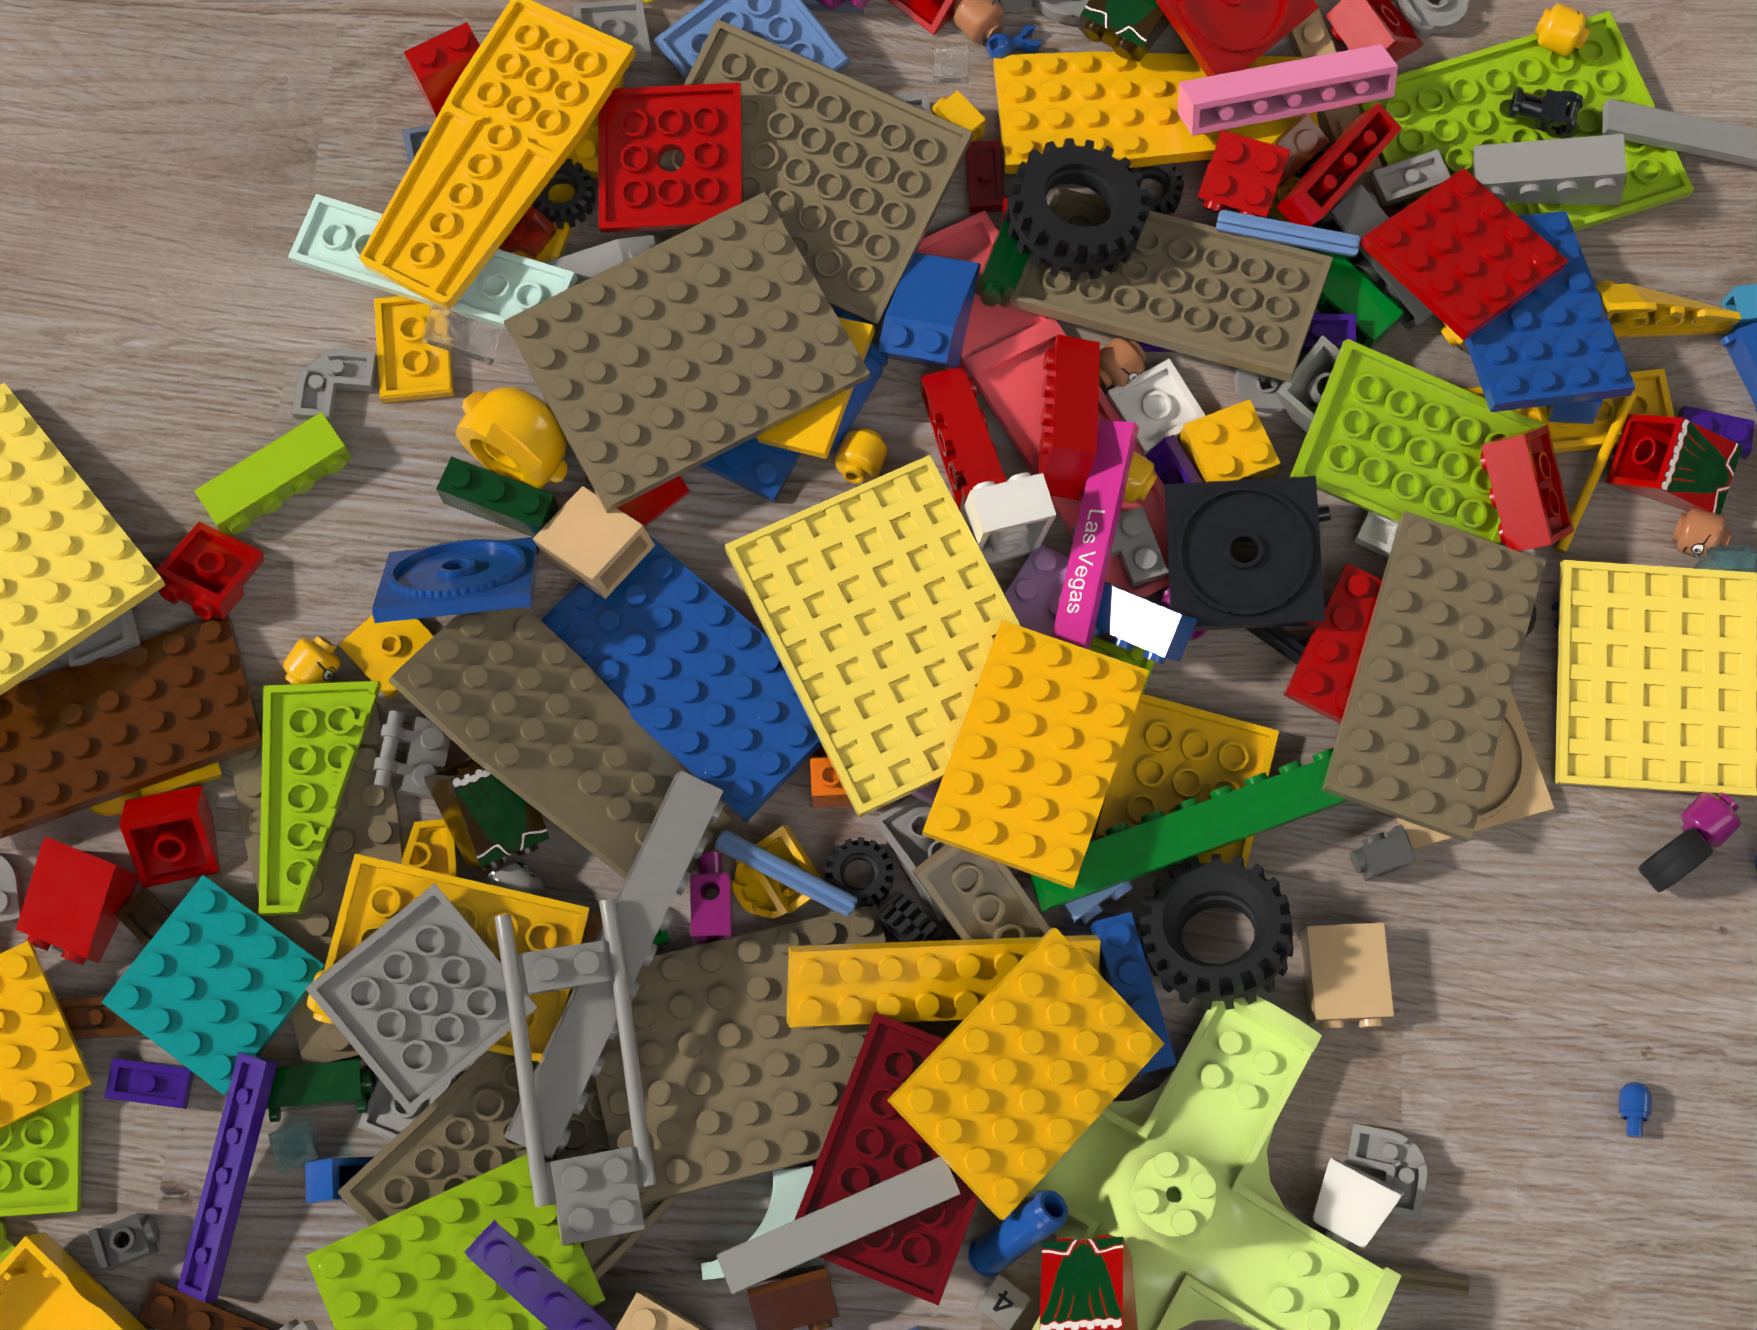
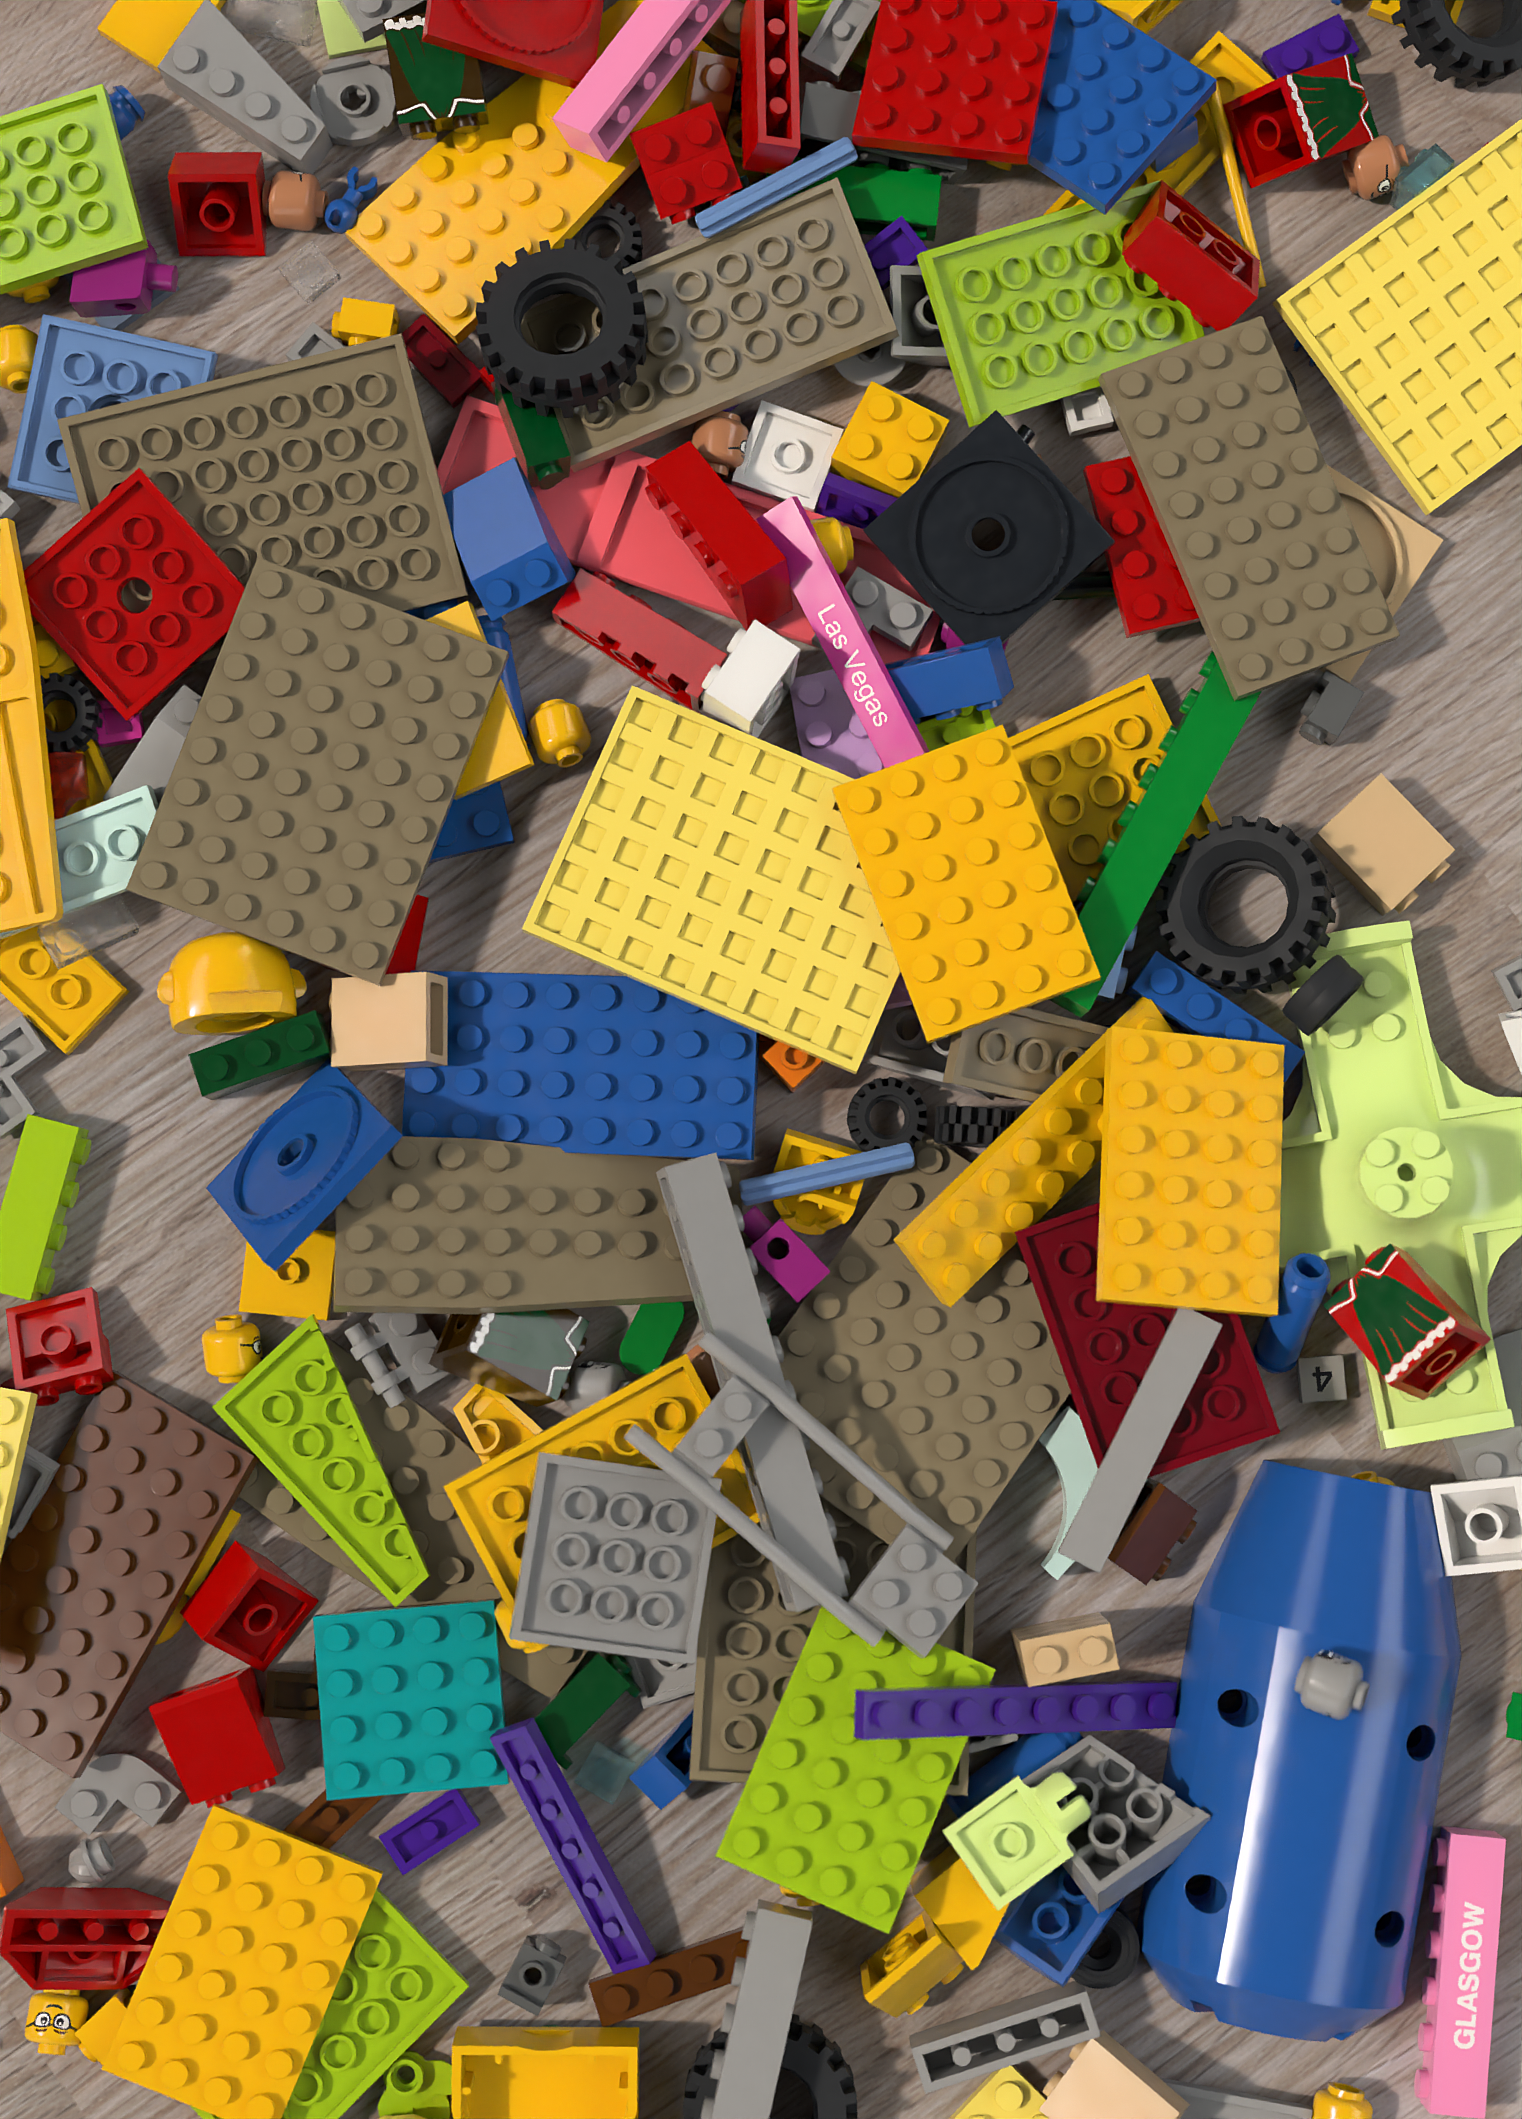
camera: 35 degrees left, 10 degrees up
(584, 883) = (650, 1336): none -> green tile
(588, 231) = (116, 729): none -> dark pink plate
(1219, 1033) = (1322, 995): none -> black tyre

